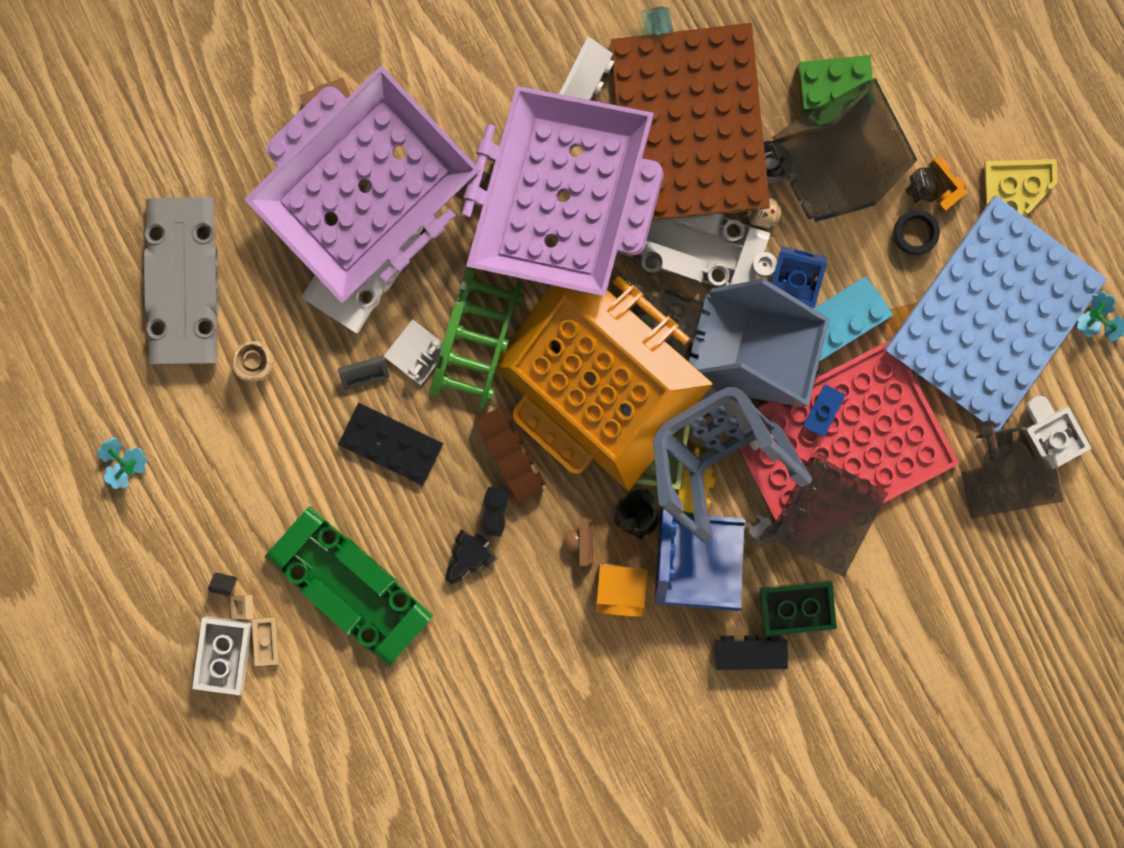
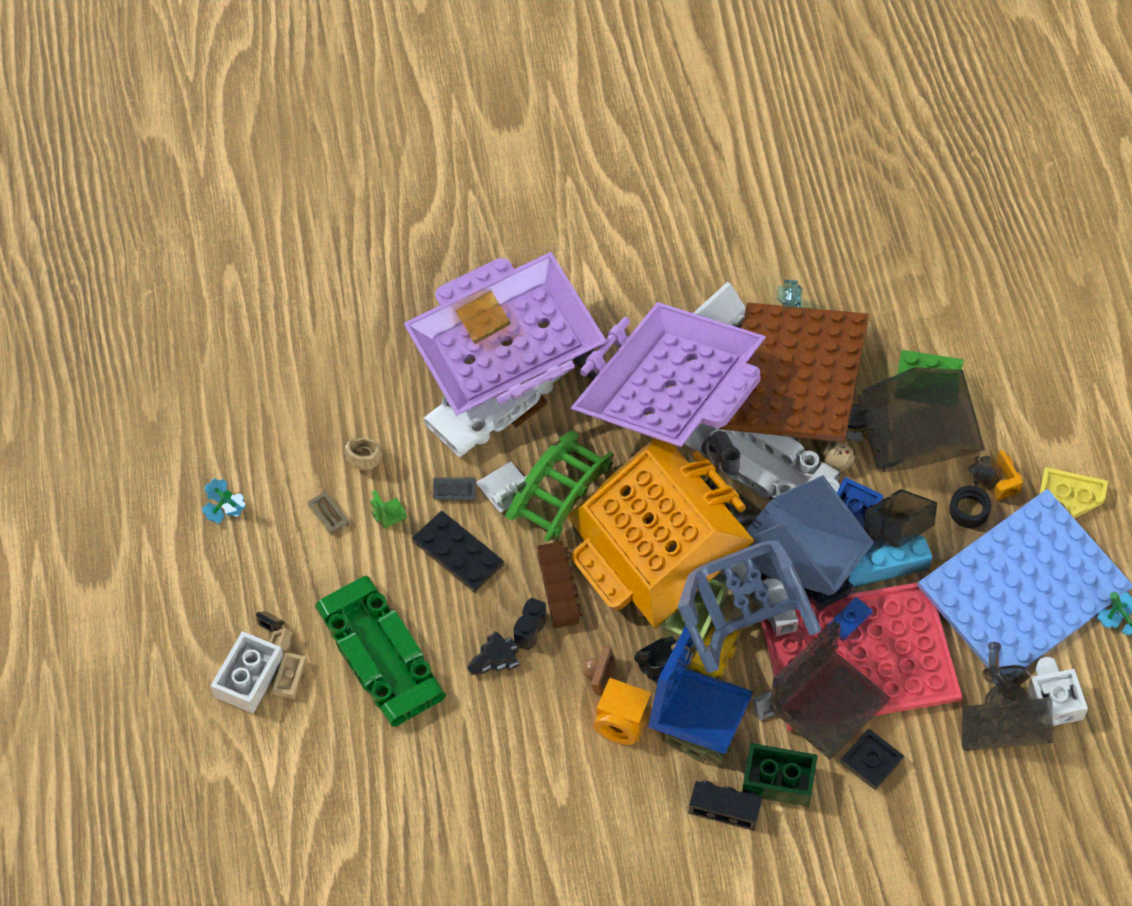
camera: 25 degrees right, 30 degrees down
(181, 280) = (327, 383): light grey panel -> none
(222, 426) = (337, 526): none -> dark tan tile
(301, 420) = (388, 512): none -> bright green bracket
(330, 169) = (483, 317): none -> clear yellow tile
(849, 280) = (900, 518): none -> clear smoke piece
(884, 558) = (872, 759): none -> black plate

